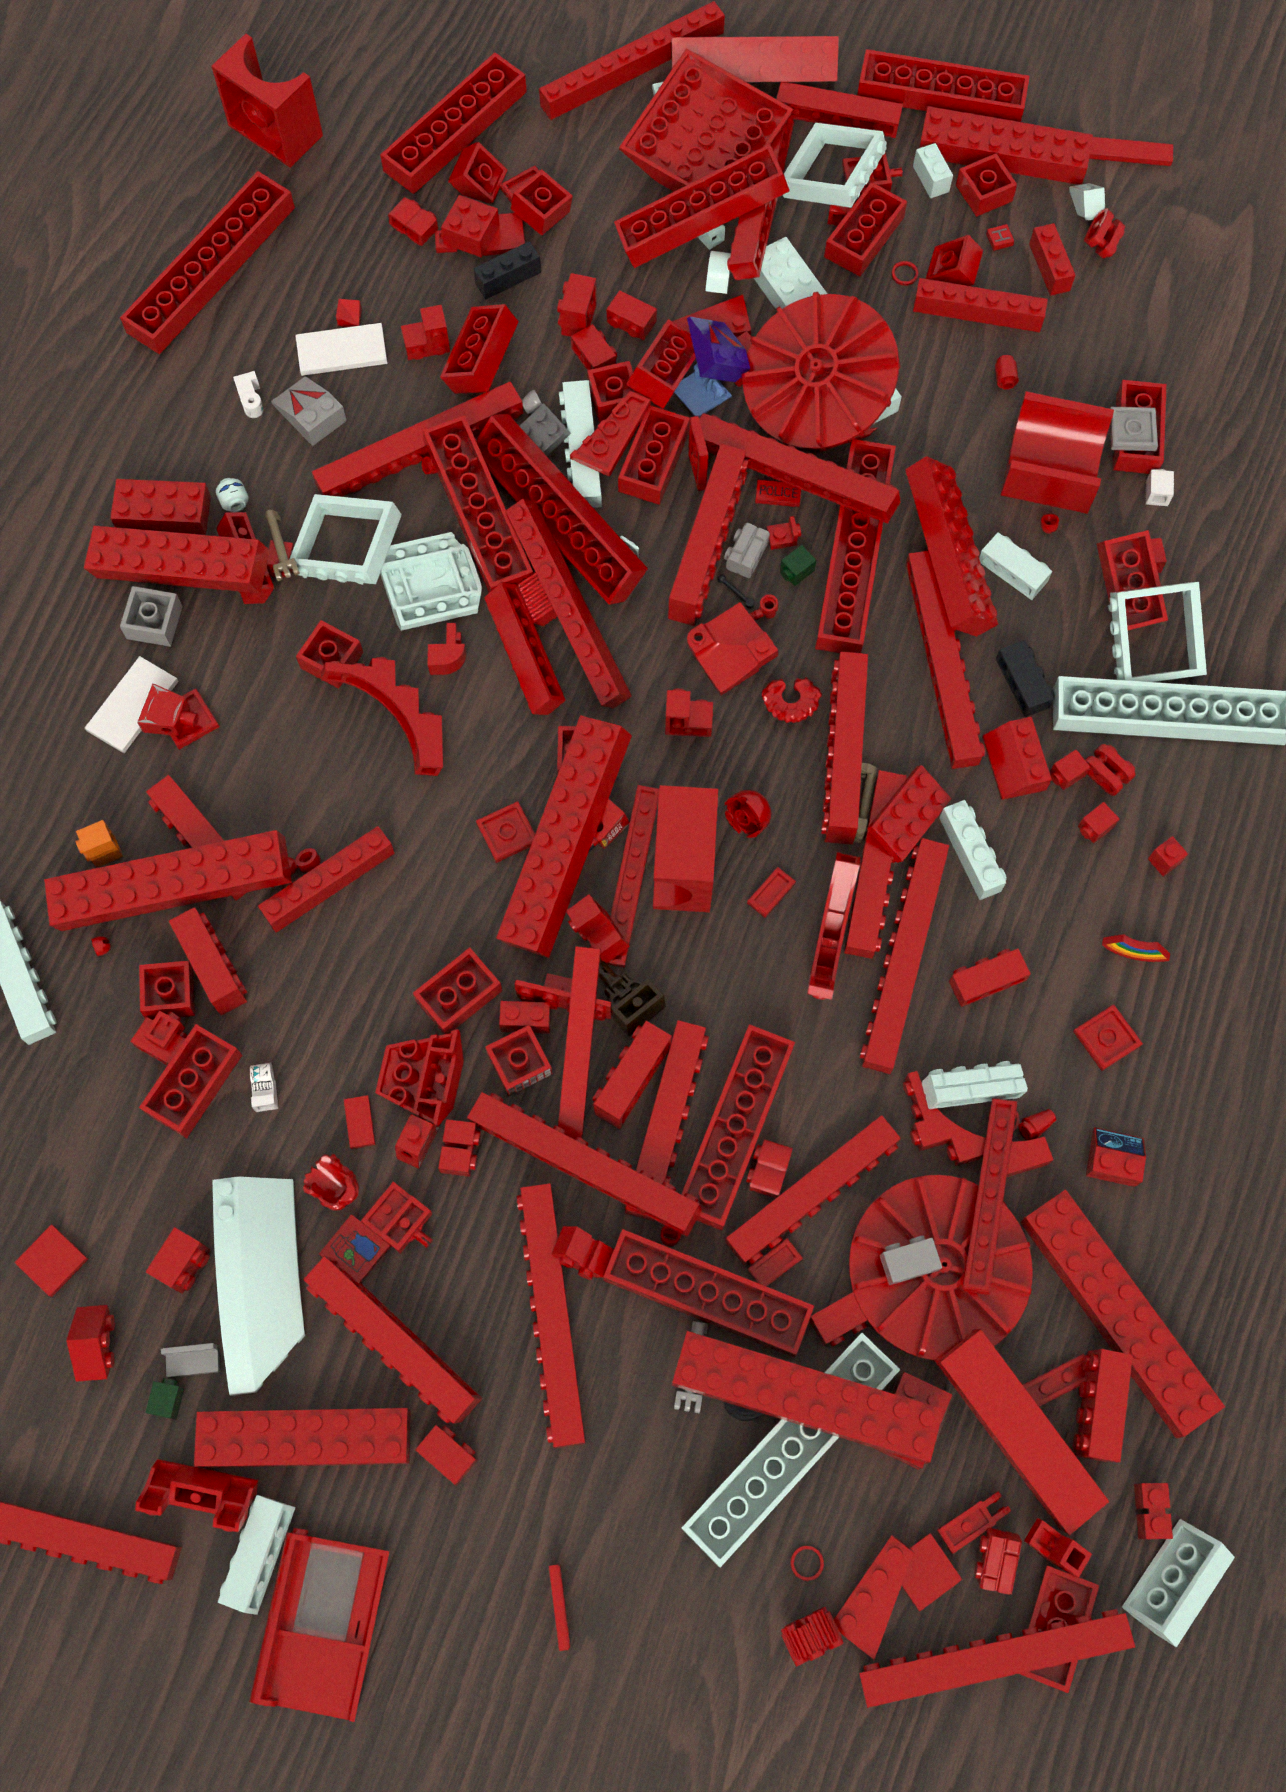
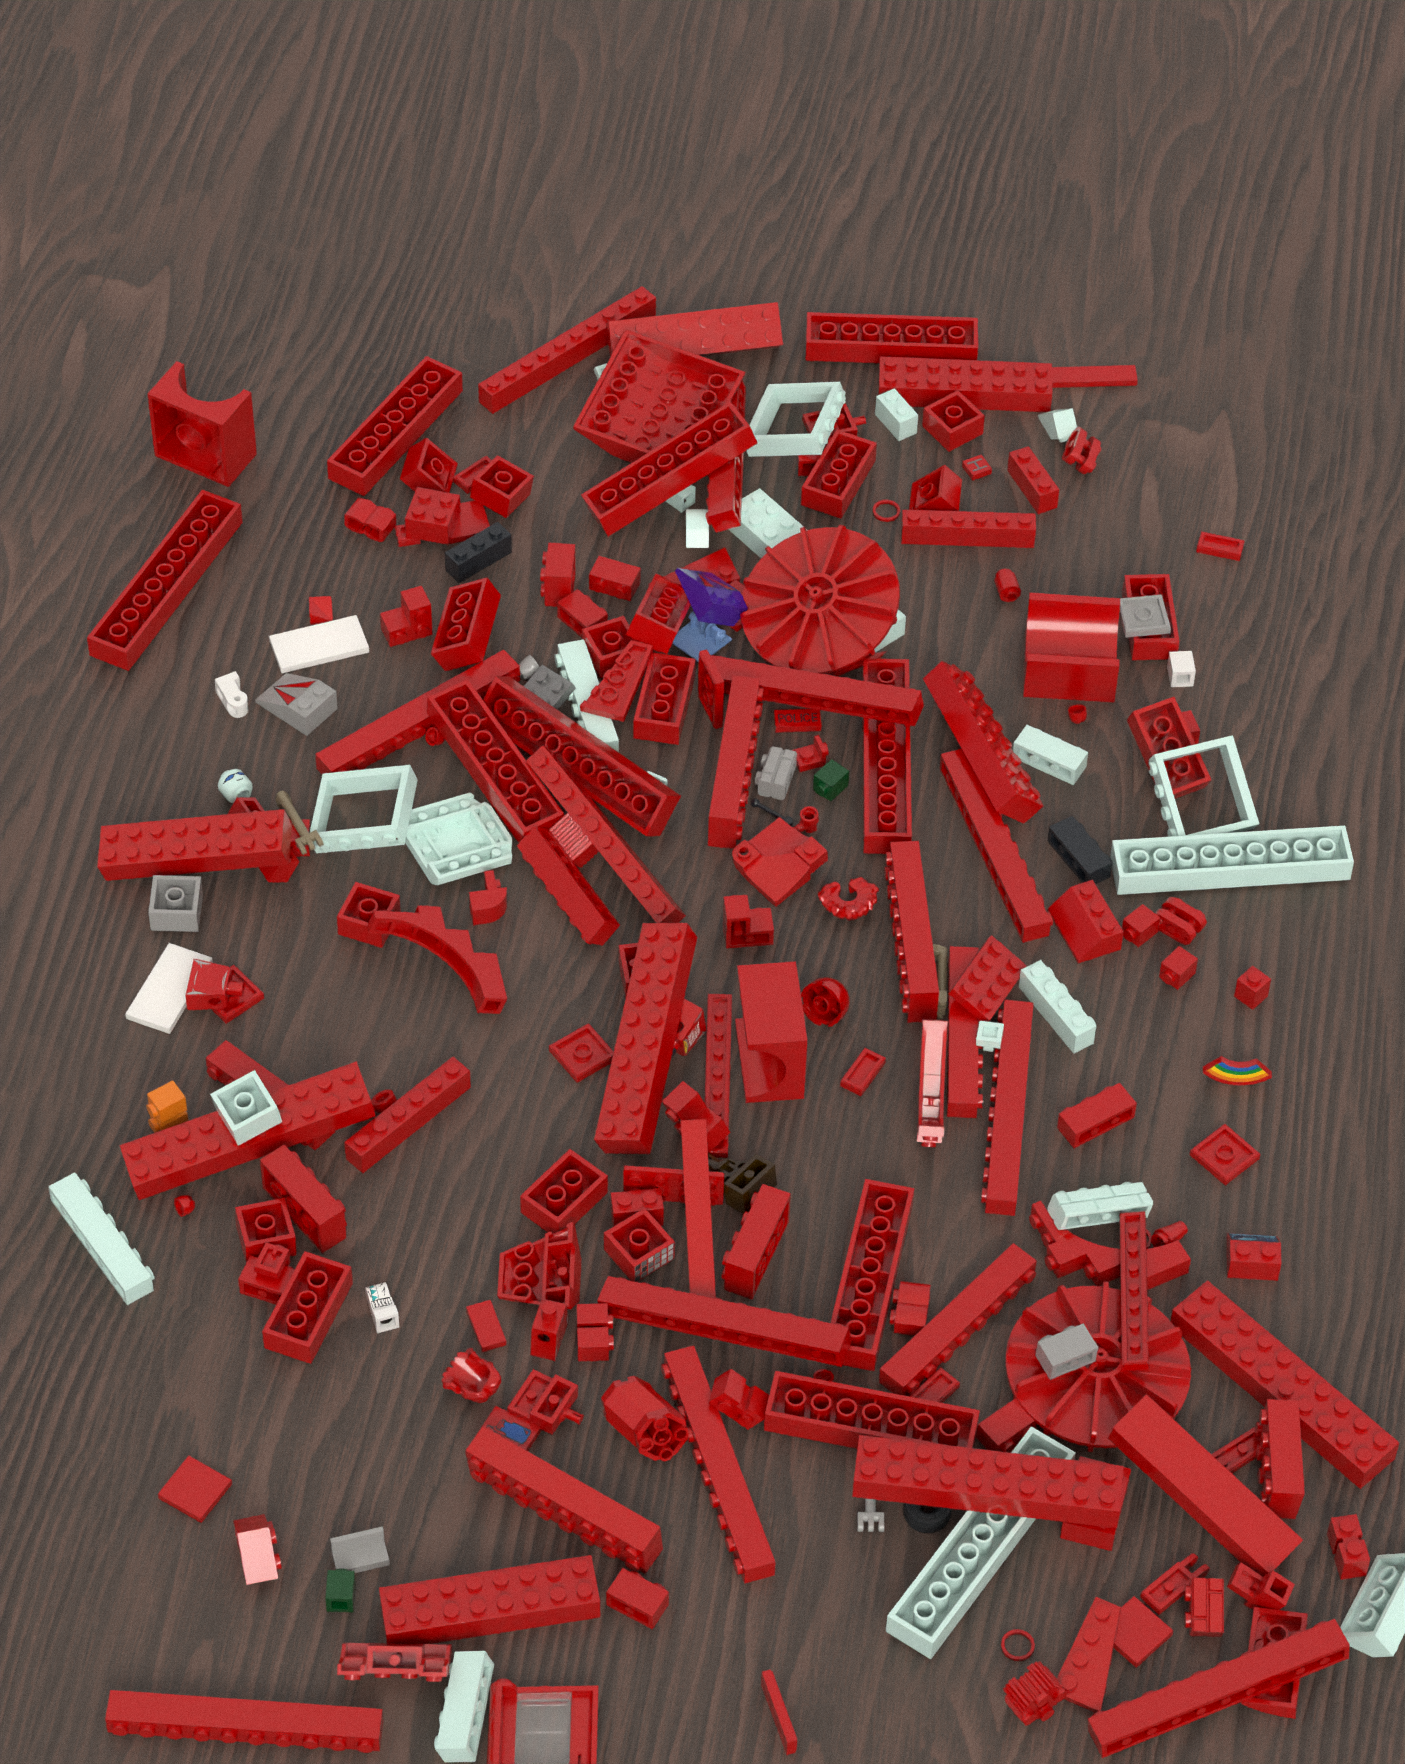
camera: 10 degrees left, 20 degrees down
(159, 869) = (246, 1107): none -> light aqua brick
(161, 506) = (162, 799): red brick -> none
(179, 1261) = (331, 1463): red brick -> none
(256, 1277) = (412, 1470): light aqua slope -> none
(488, 1258) = (645, 1418): none -> red brick
(671, 1105) = (801, 1265): red brick -> none
(840, 108) = (789, 368): red brick -> none
(900, 877) = (989, 1035): none -> light aqua tile
(1221, 354) = (1220, 546): none -> red tile

